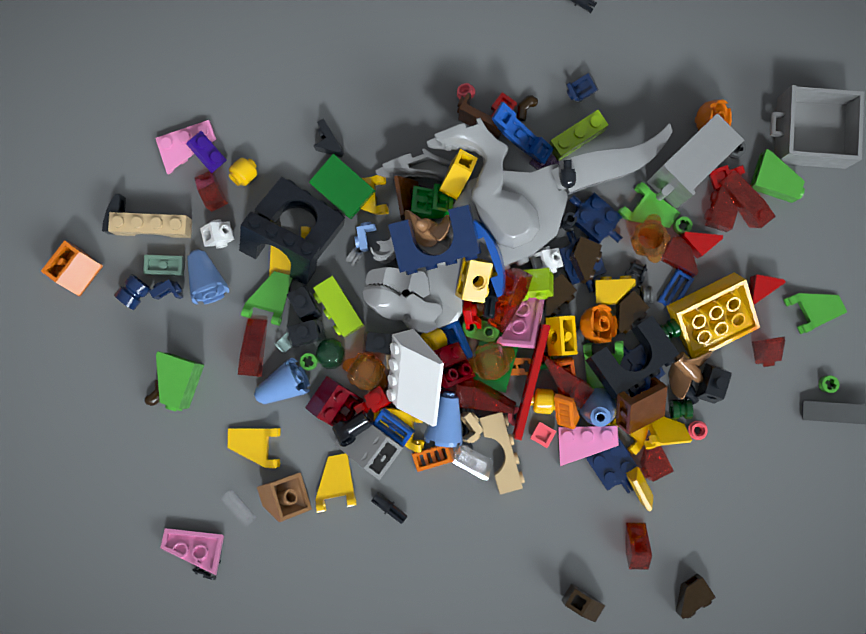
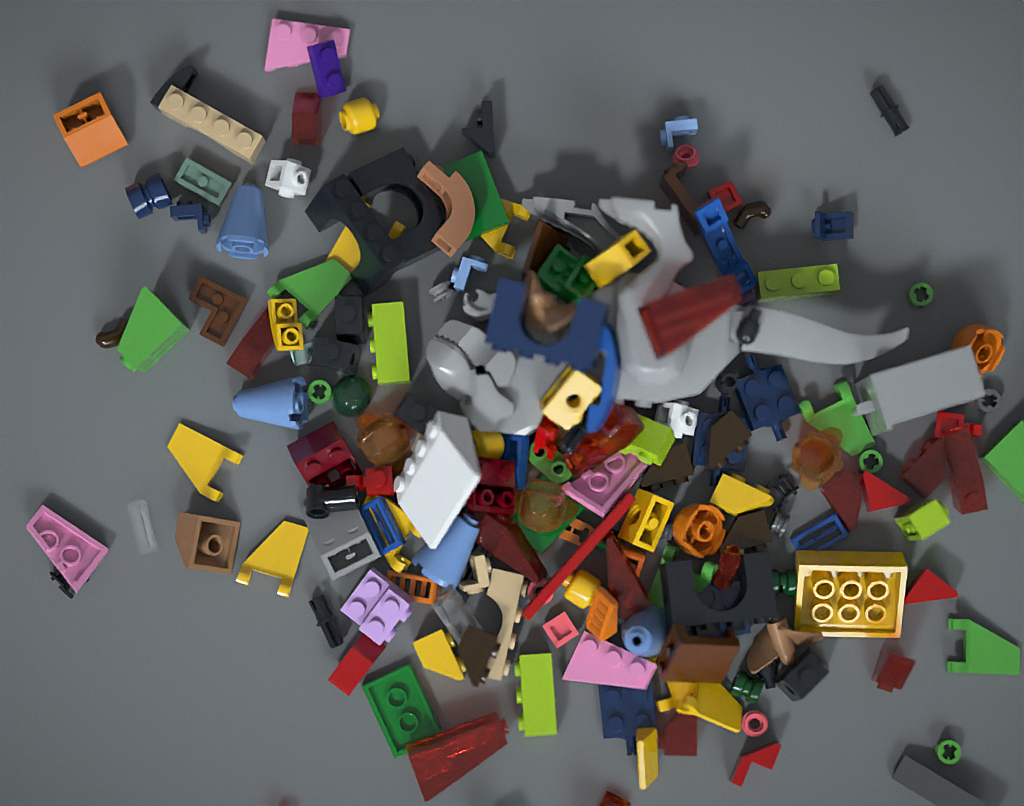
camera: 25 degrees right, 0 degrees up
(218, 338) = (224, 307): none -> reddish brown plate
(263, 330) = (284, 324): none -> yellow slope
(337, 196) = (458, 205): none -> nougat arch
(418, 481) = (378, 606): none -> lavender plate
(423, 525) = (356, 664): none -> red slope
(452, 74) = (680, 126): none -> light blue bracket
(468, 540) = (401, 708): none -> green tile
(473, 493) = (437, 654): none -> yellow slope
(497, 478) = (475, 652): none -> dark brown slope
(516, 550) = (455, 752): none -> clear red slope
(521, 188) = (684, 314): none -> clear red slope
(549, 484) = (536, 694): none -> lime brick
(630, 339) = (727, 566): none -> clear red arm
(663, 100) = (928, 292): none -> bright green bush
(715, 447) = (763, 756): none -> red slope
(739, 244) = (923, 519): none -> lime brick

